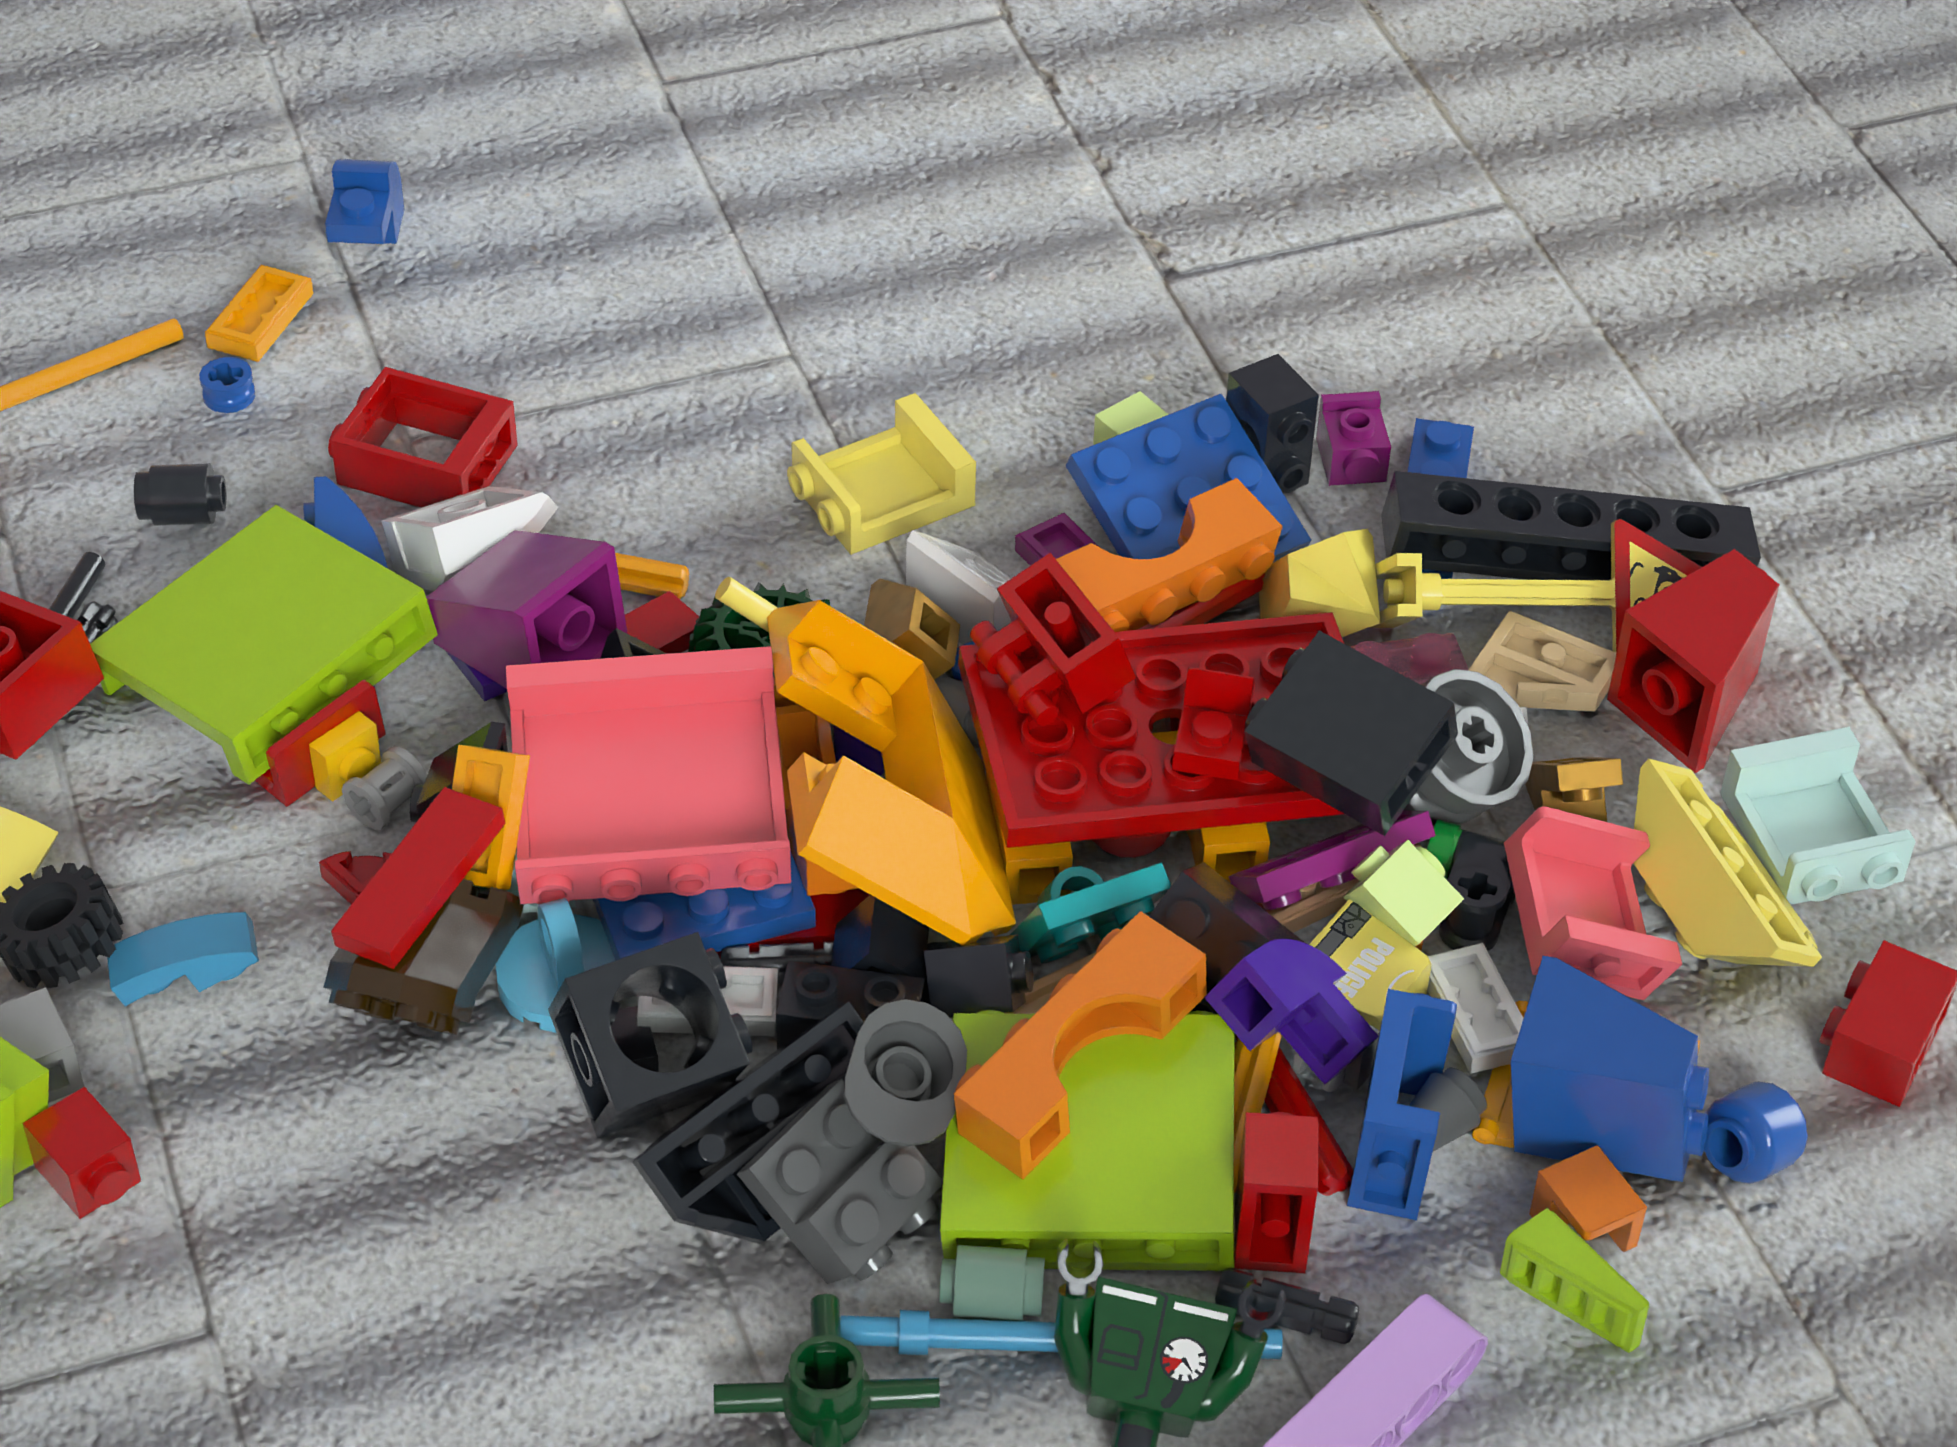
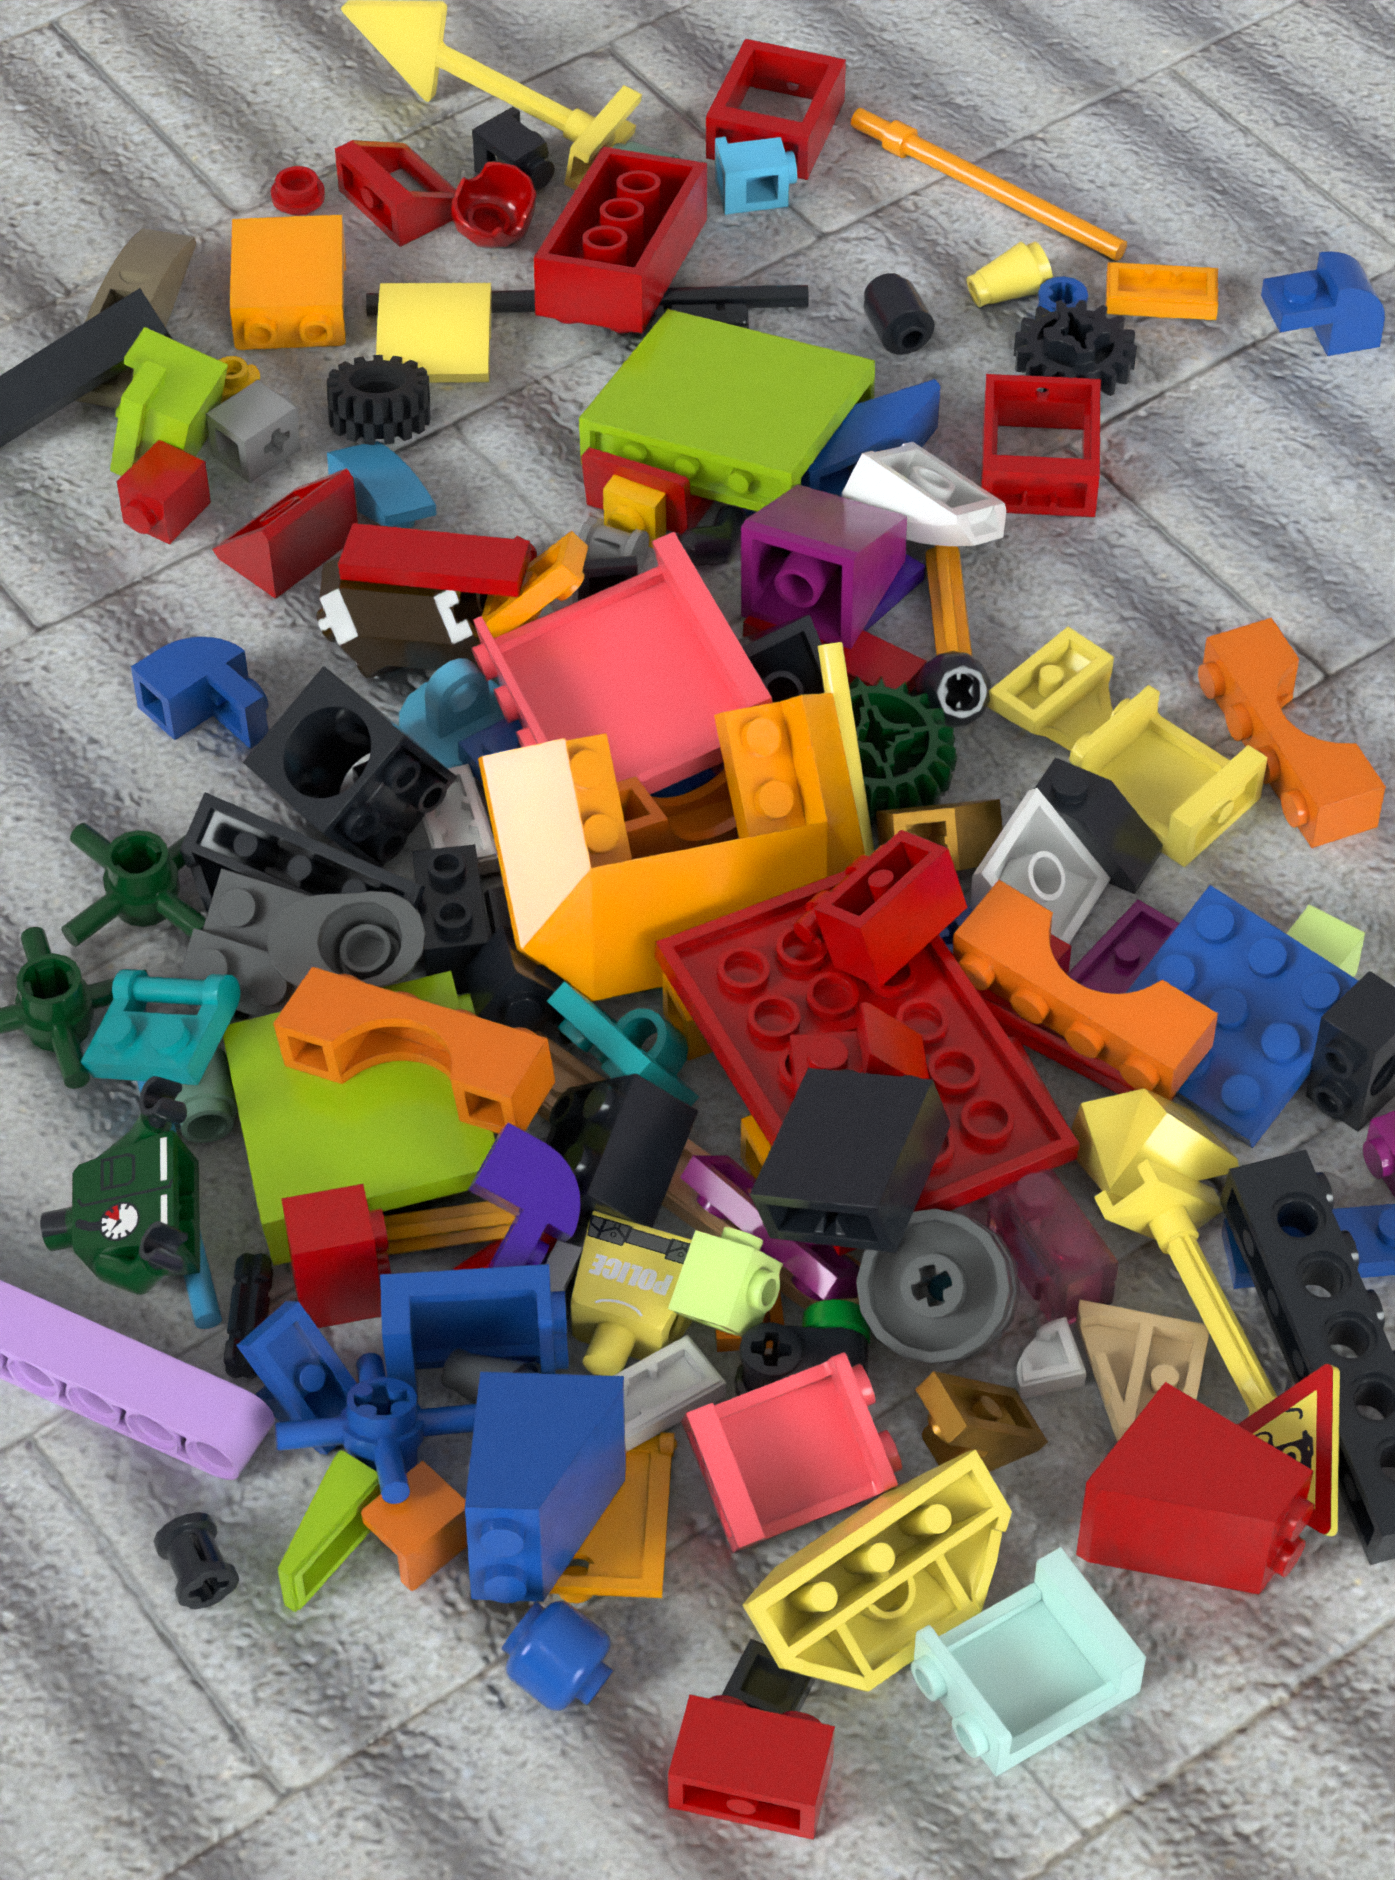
camera: 75 degrees right, 5 degrees up
(173, 403) = (1010, 275): none -> light yellow cone
(205, 1049) = (293, 534): none -> red slope
(306, 386) = (1076, 345): none -> black gear
(408, 1166) = (199, 680): none -> blue brick
(412, 710) = (713, 543): none -> black arm
(679, 1282) = (137, 881): none -> dark green bar
(707, 568) = (956, 685): none -> black piece
(738, 517) = (1058, 690): none -> light yellow slope
(805, 392) = (1321, 784): none -> orange arch
(891, 525) = (1102, 822): none -> black slope
(942, 1295) = (163, 1045): none -> teal plate
(1392, 1267) = (297, 1367): none -> blue slope
(1482, 1202) = (379, 1426): none -> blue bar
(1585, 1399) = (196, 1560): none -> black bush
(1796, 1003) = (764, 1685): none -> black tile

